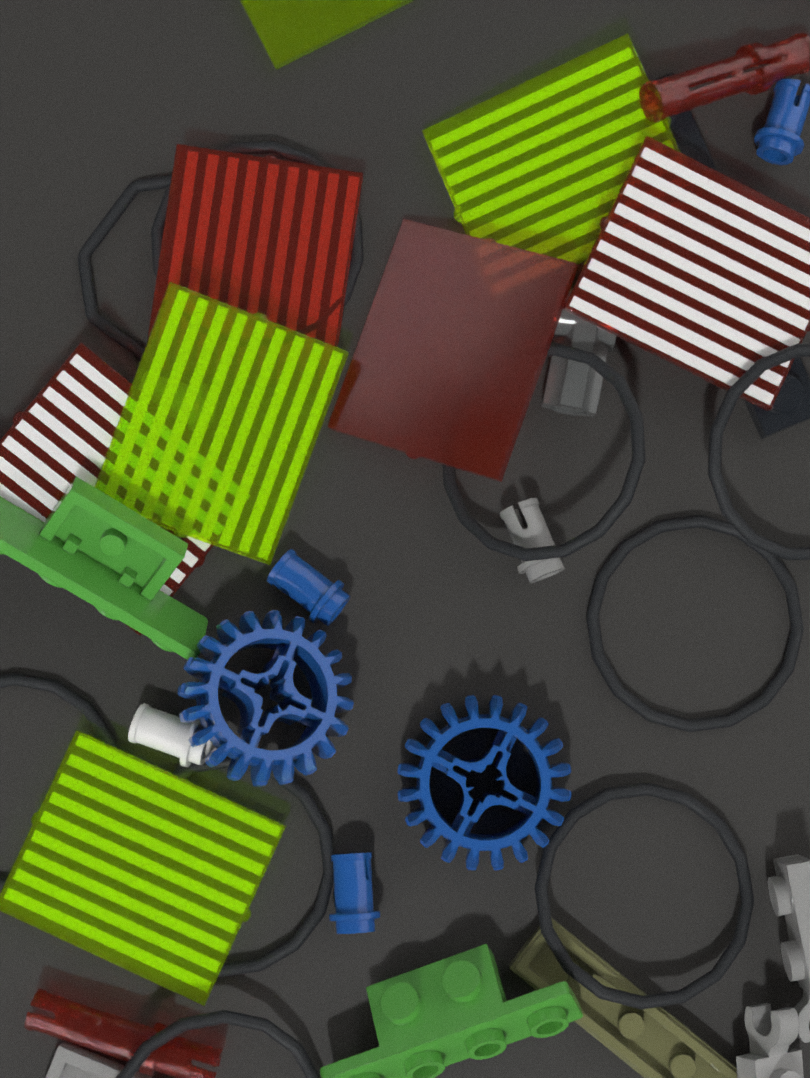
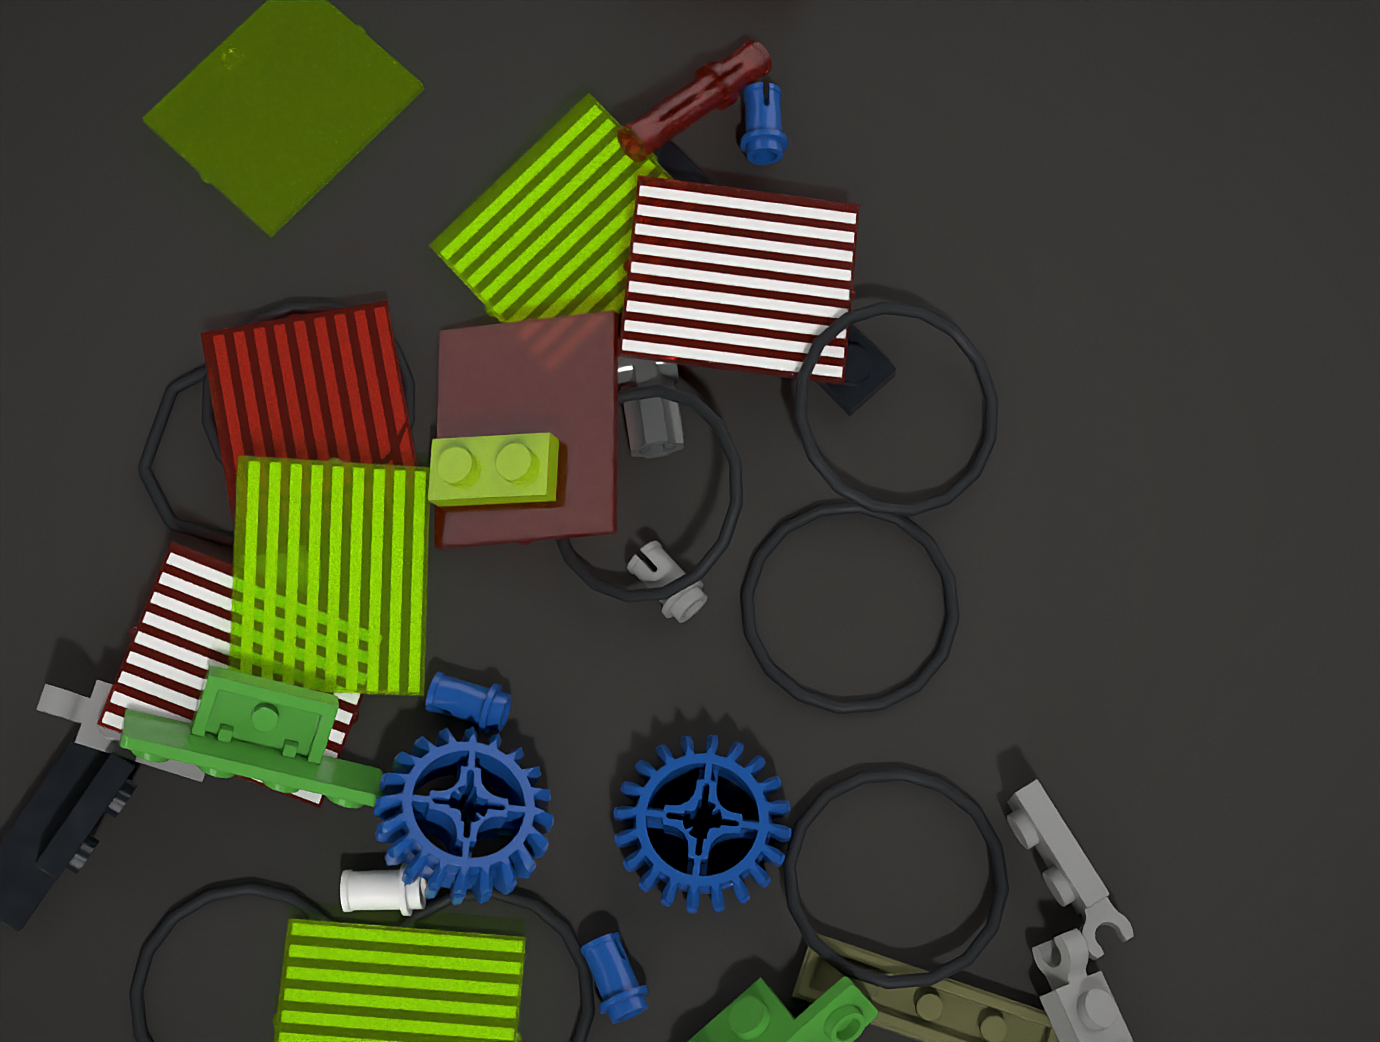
camera: 25 degrees left, 10 degrees down
(407, 376) = (493, 469): none -> lime plate

